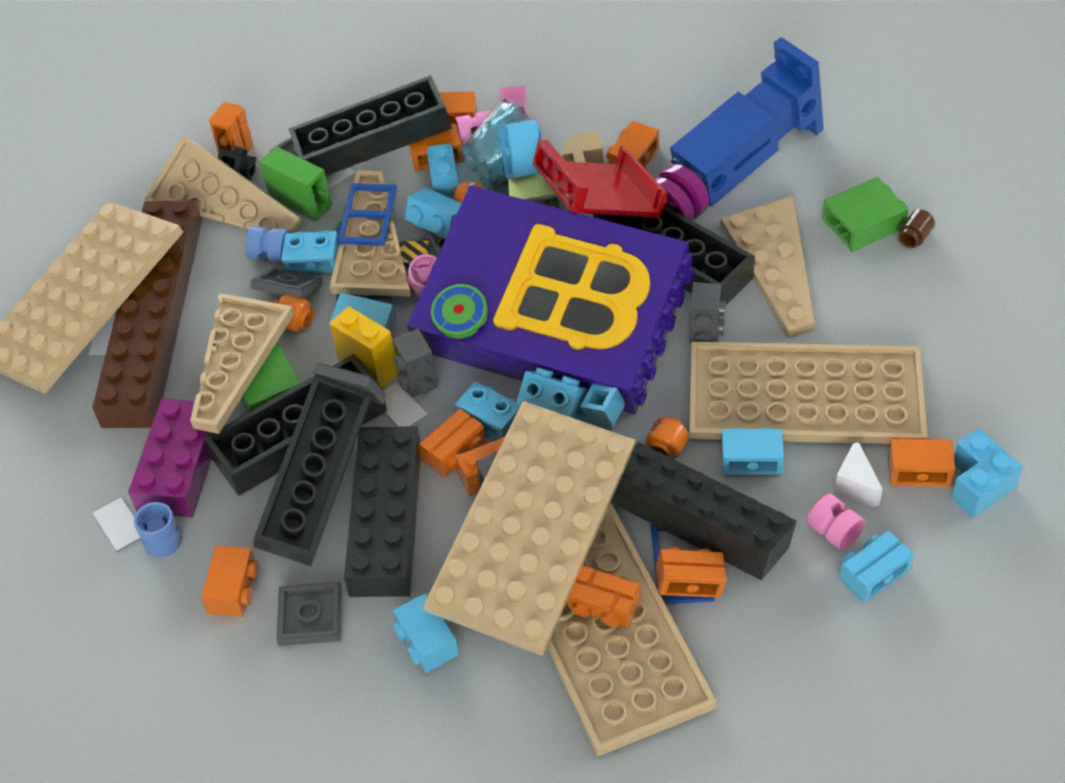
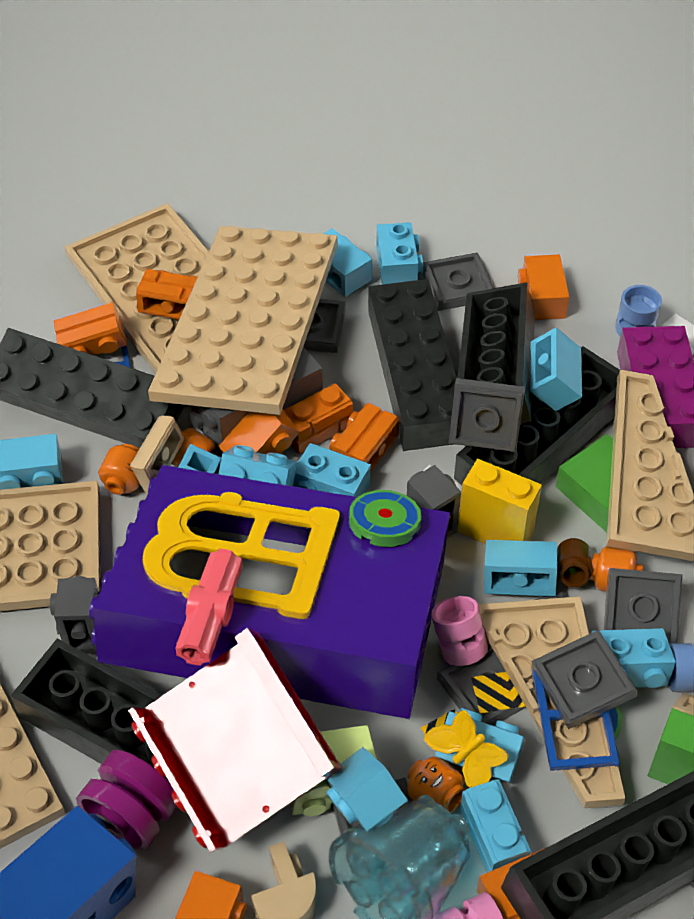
camera: 165 degrees right, 0 degrees up
(272, 426) = (555, 369): none -> medium azure brick
(319, 320) = (574, 562): none -> reddish brown brick
(354, 221) = (584, 679): none -> dark grey tile
(360, 643) = (398, 253): none -> medium azure brick
(443, 193) = (462, 737): none -> yellow piece
(602, 221) = (209, 607): none -> coral piece
(637, 415) = (157, 450): none -> tan brick

